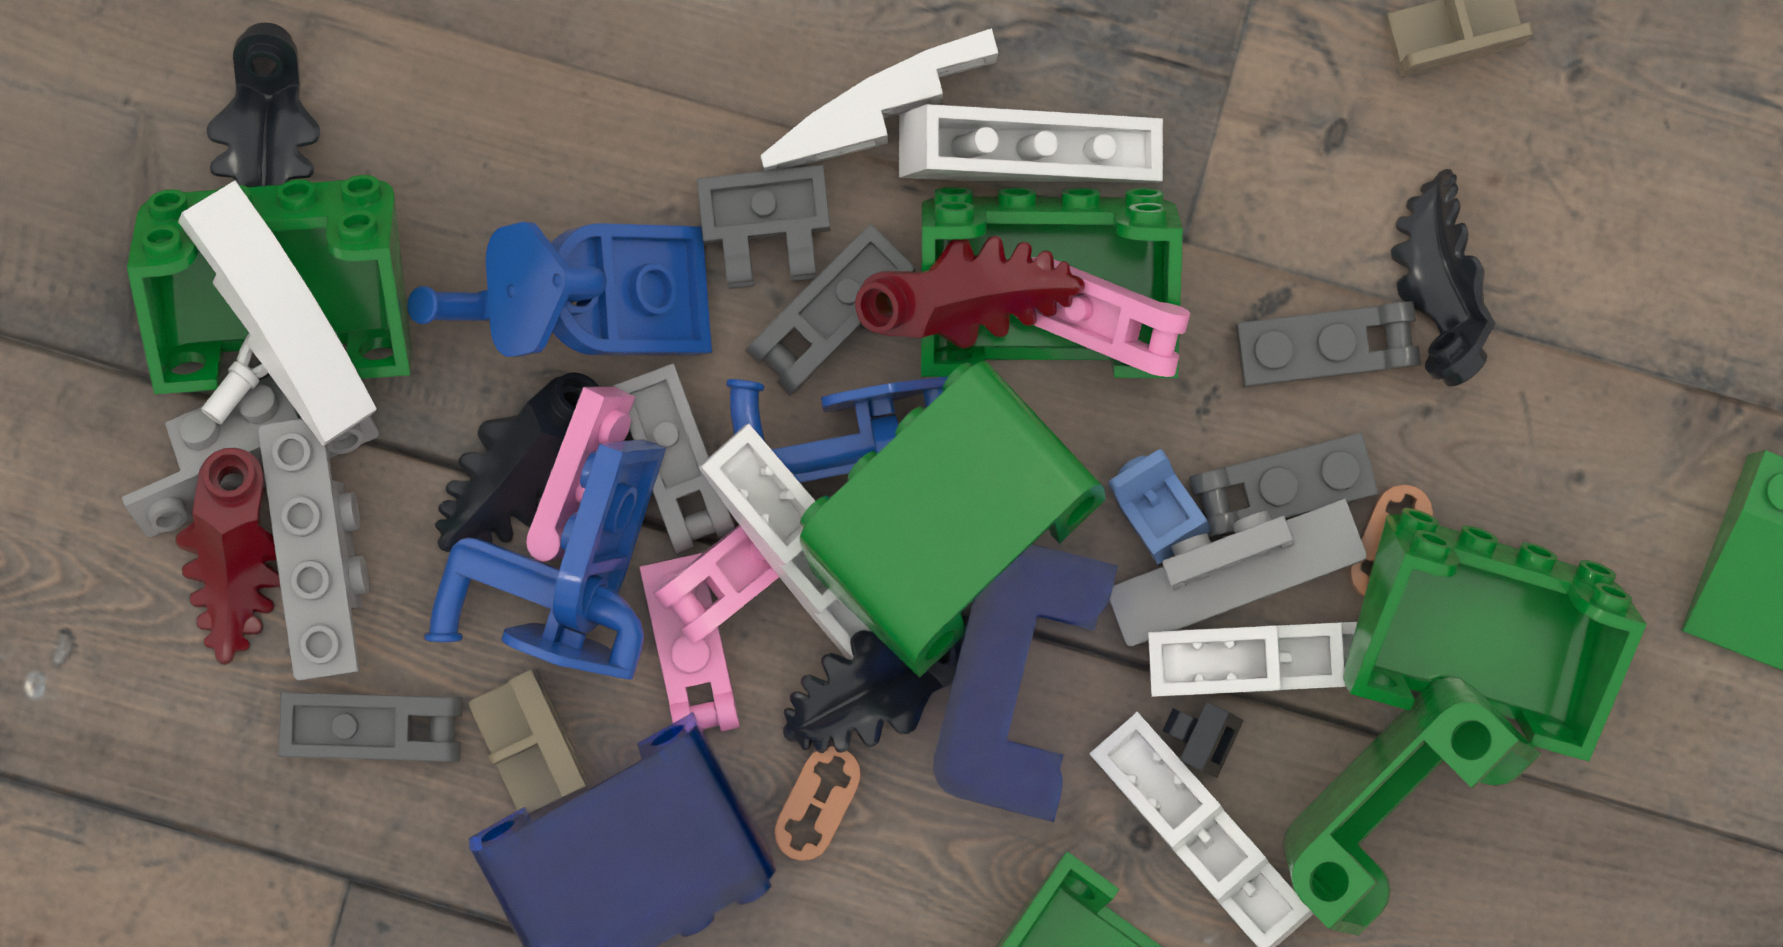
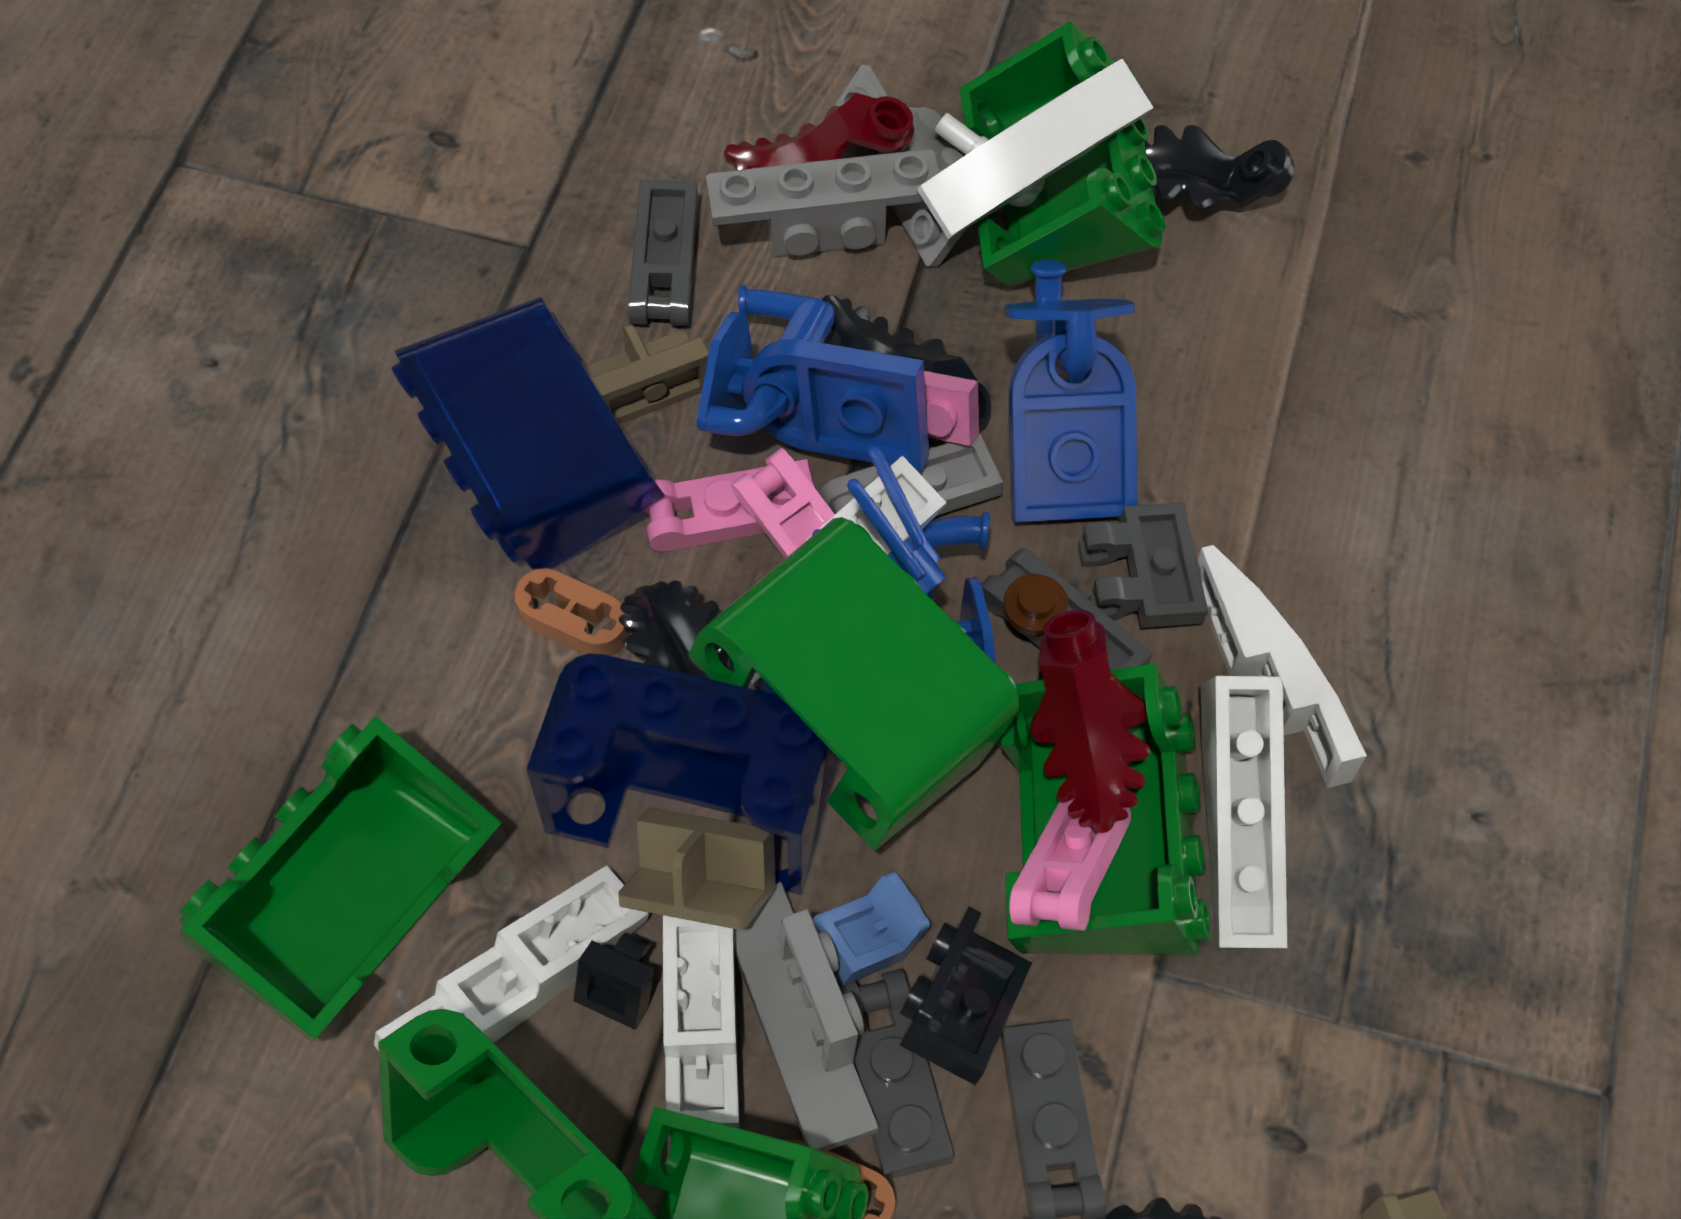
camera: 90 degrees right, 25 degrees down
(822, 469) = (913, 557): none -> blue plant
(827, 336) = (1032, 602): none -> reddish brown plate
(1111, 668) = (700, 869): none -> dark tan panel
(1226, 418) = (965, 1002): none -> black bracket

